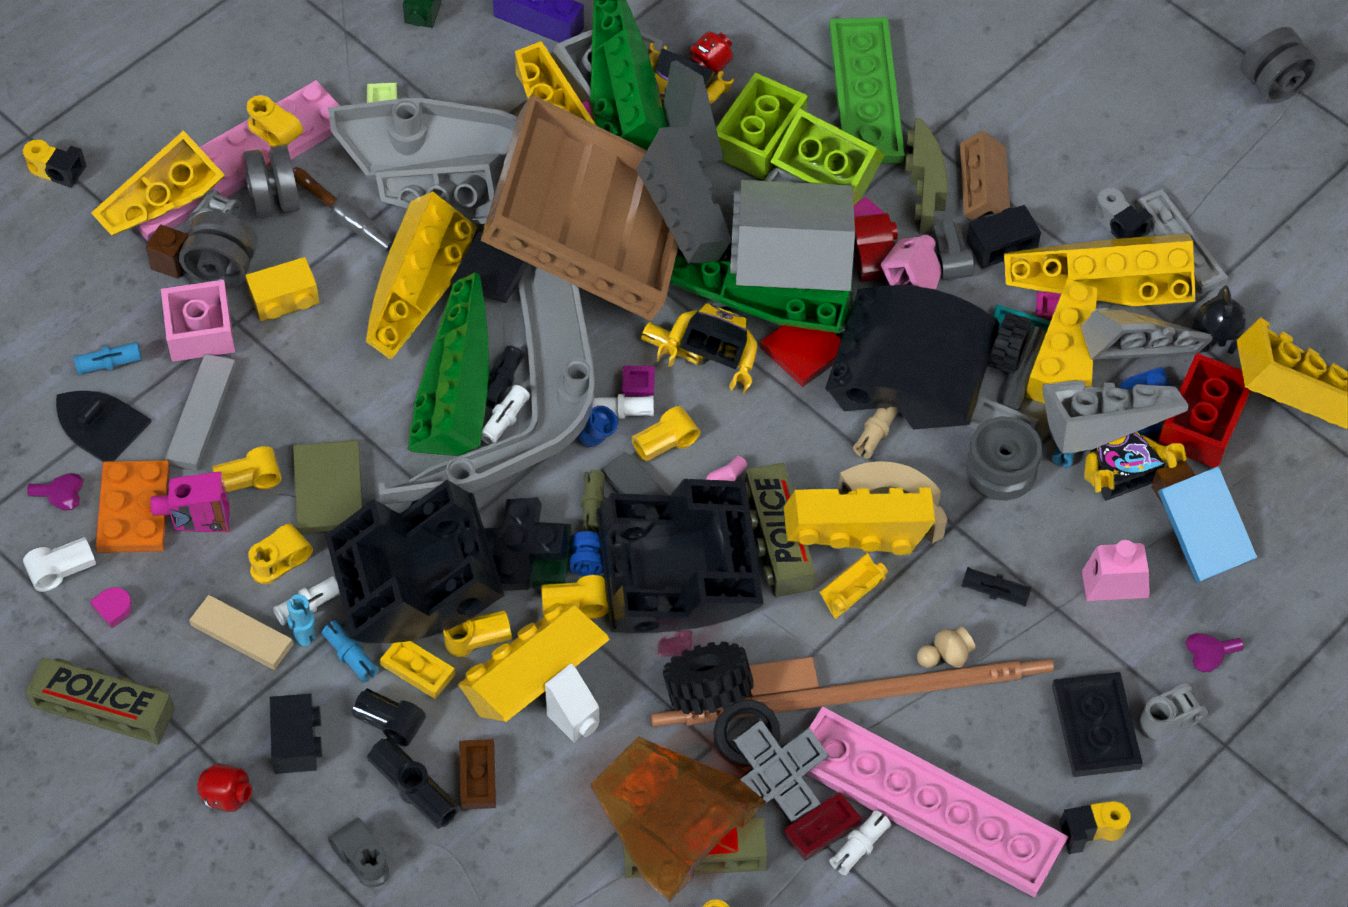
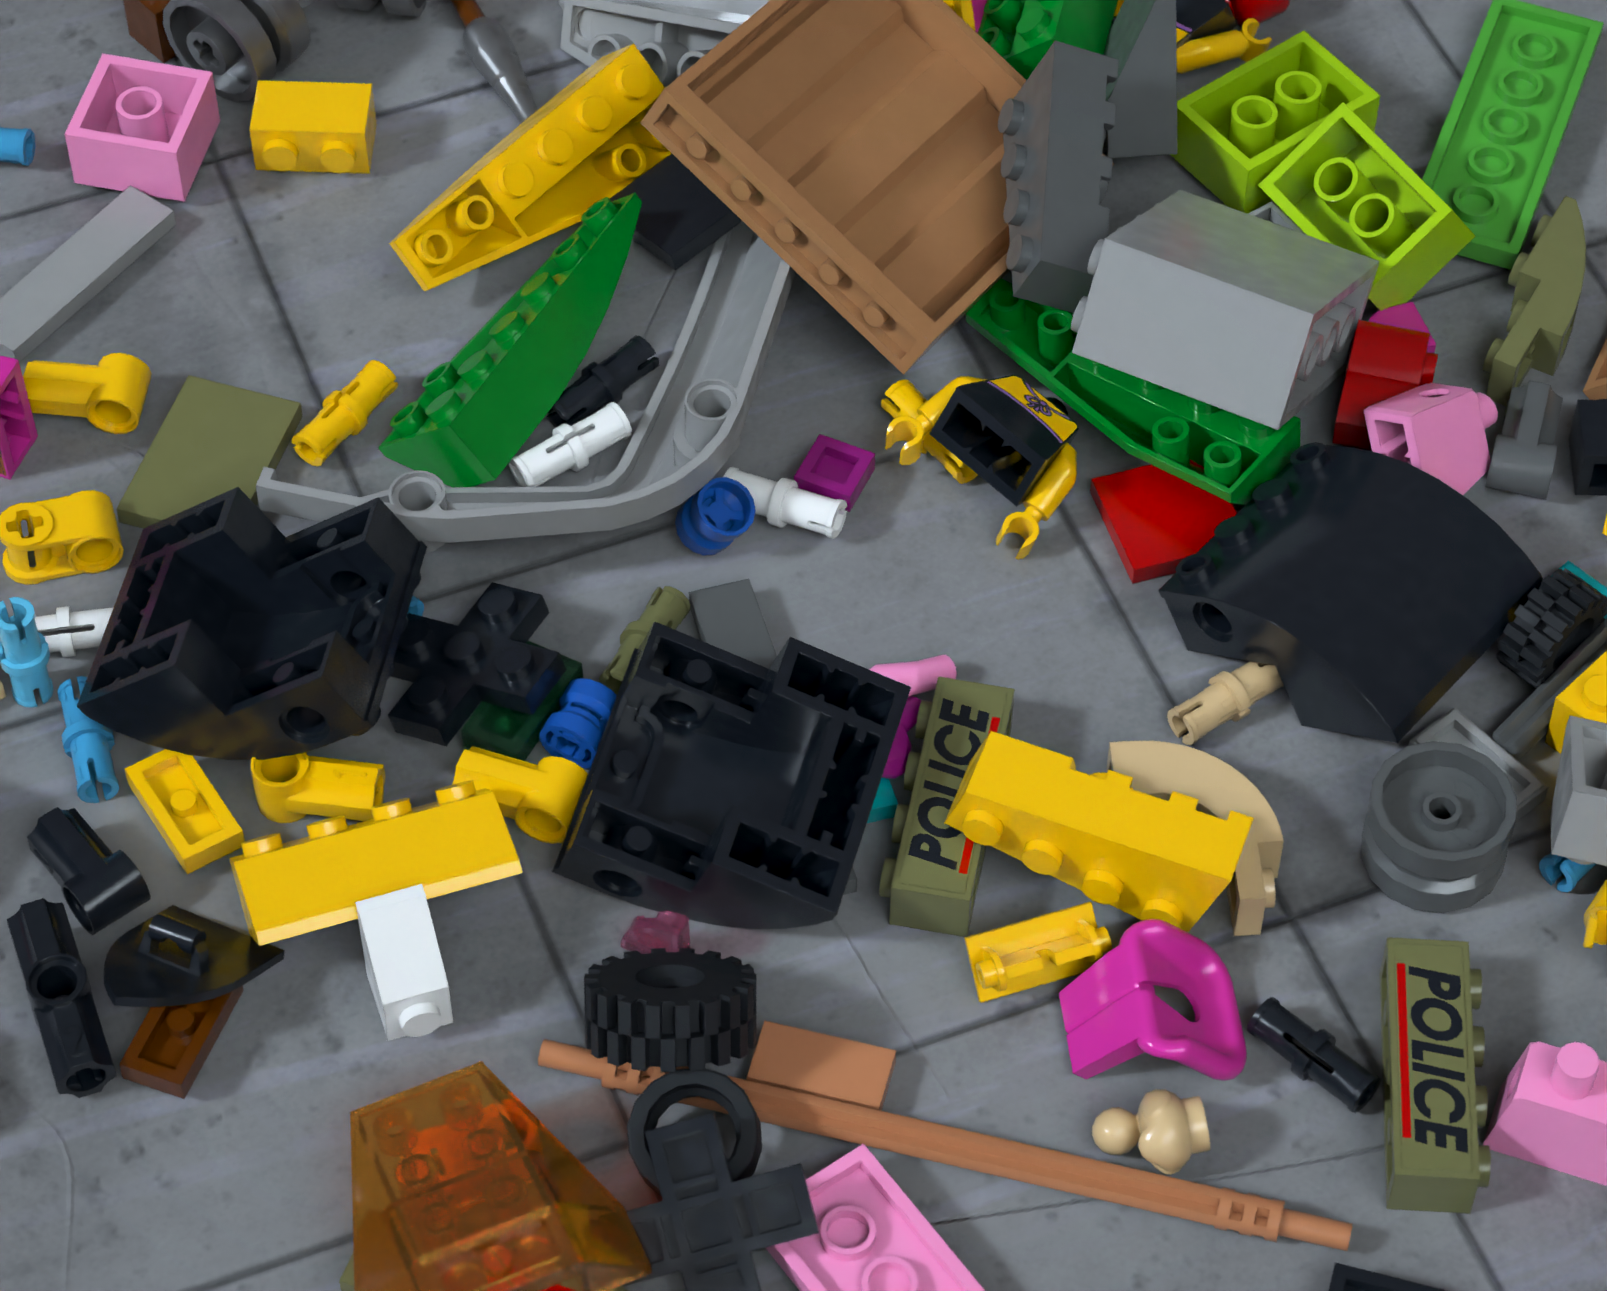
camera: 25 degrees right, 5 degrees down
(383, 437) = (344, 413): none -> yellow pin
(463, 743) = (182, 961): none -> black shield
(672, 430) = (851, 572): yellow piece -> none
(905, 602) = (1117, 1016): none -> dark pink piece
(1052, 576) = (1430, 1076): none -> olive brick

